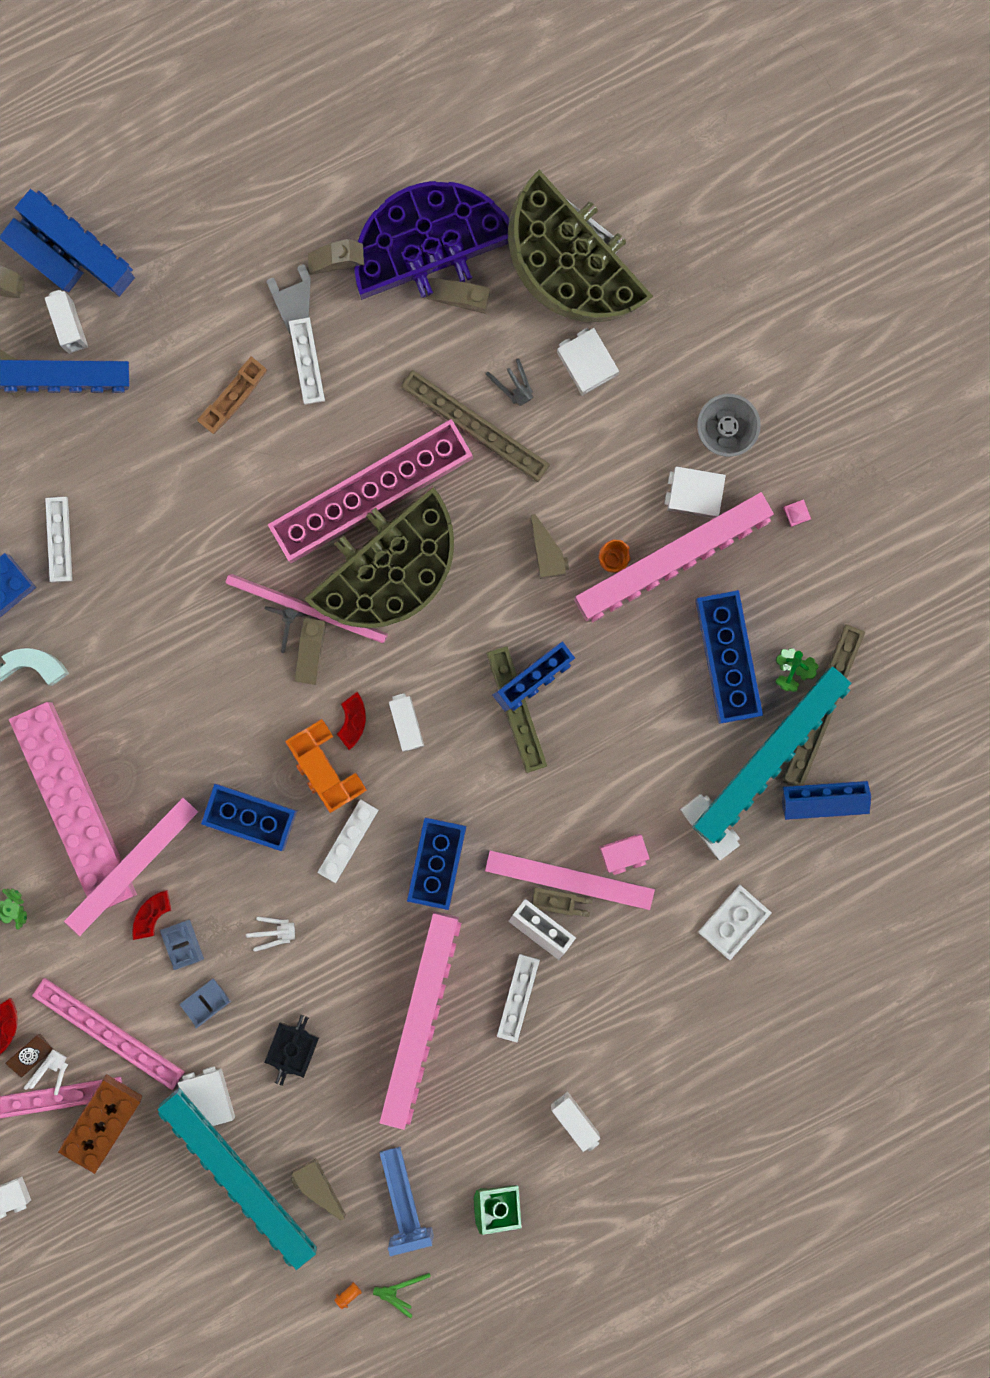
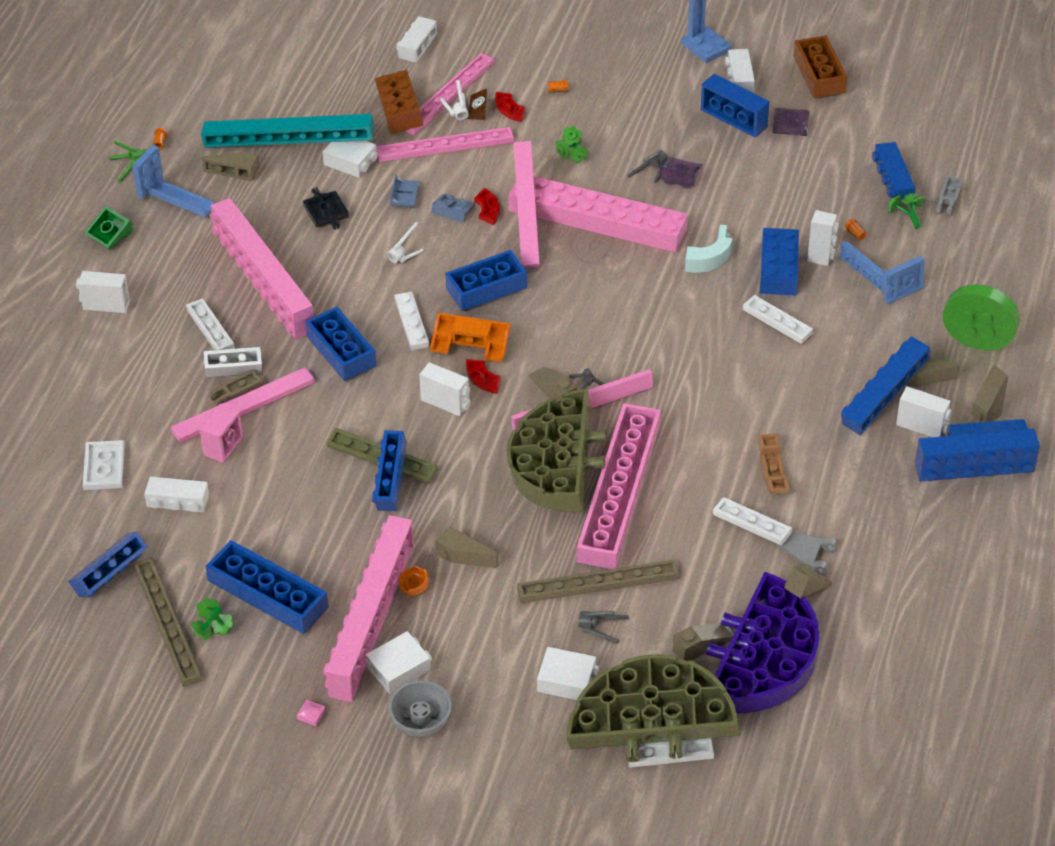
camera: 130 degrees right, 40 degrees down
(771, 755) = (175, 554): teal brick -> none

